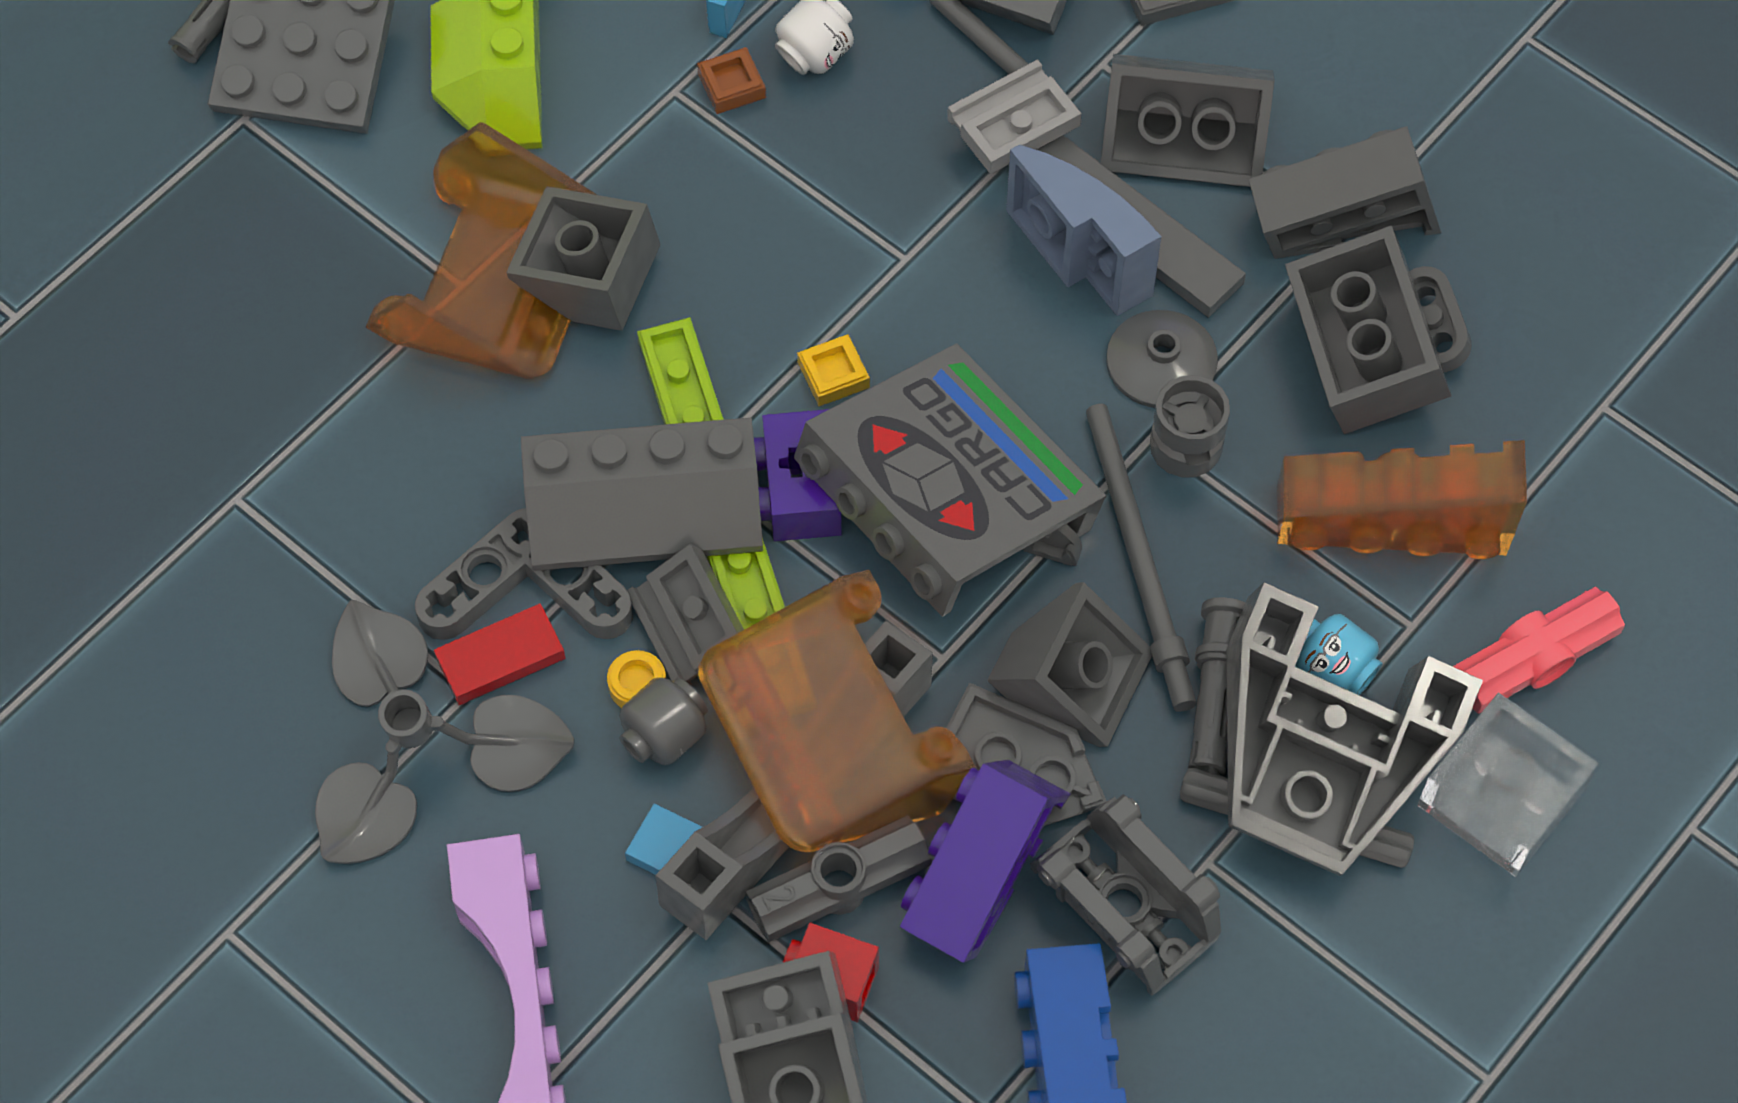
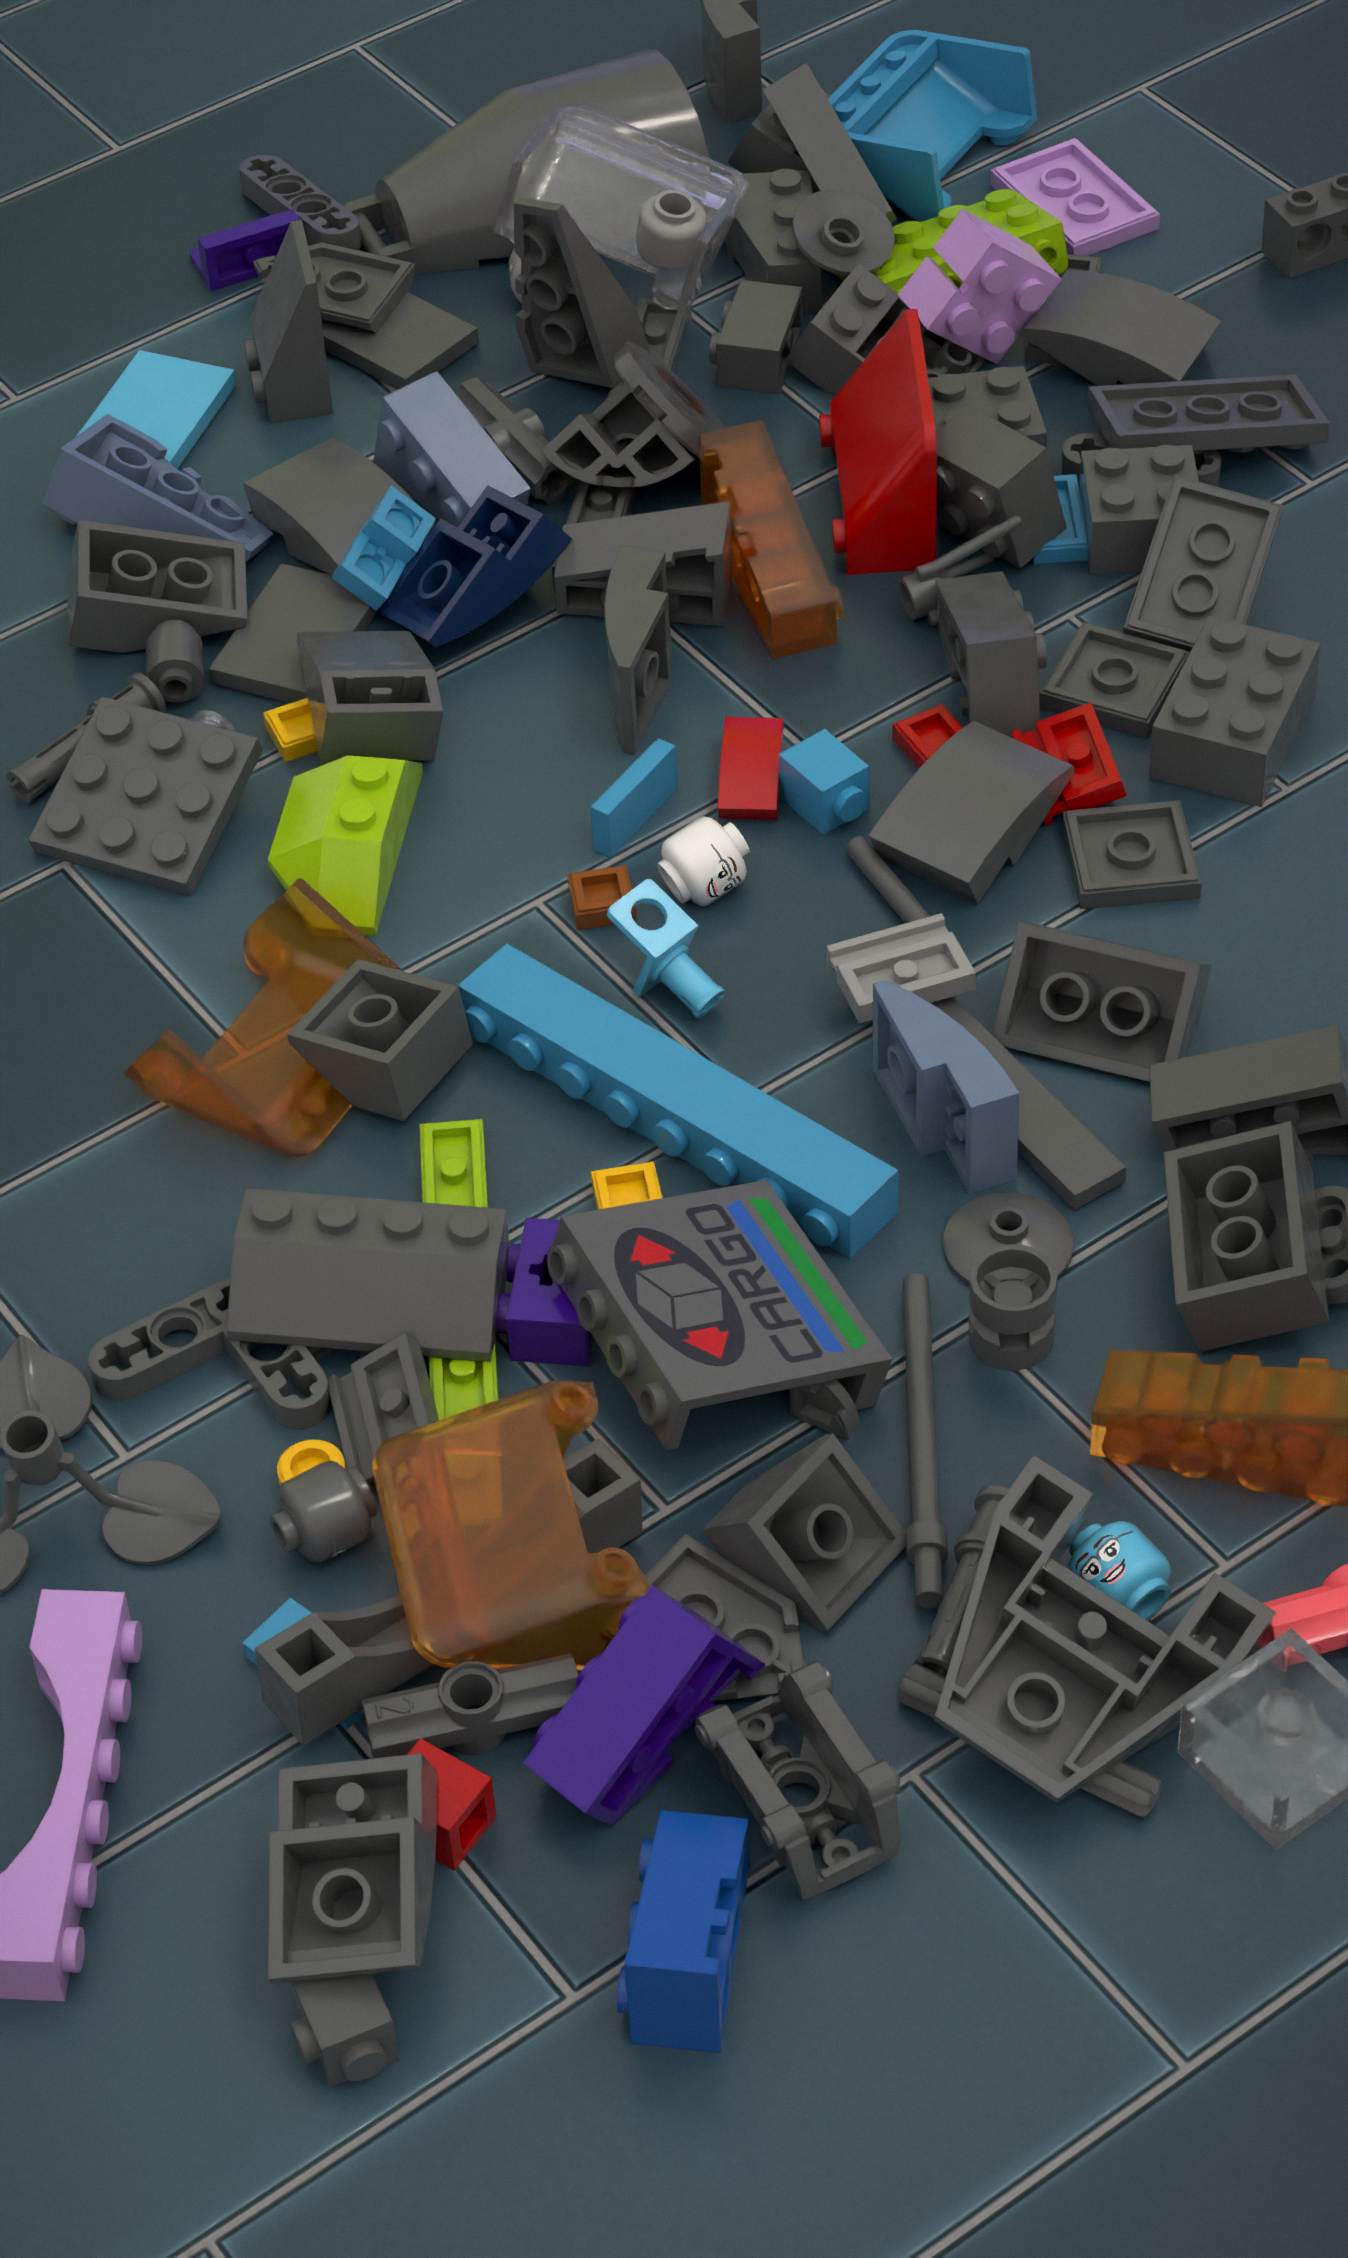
camera: 15 degrees right, 15 degrees down
(499, 654) = (168, 1421): red tile -> none
(811, 130) = (666, 949): none -> medium azure bracket
(852, 271) = (678, 1099): none -> dark azure brick

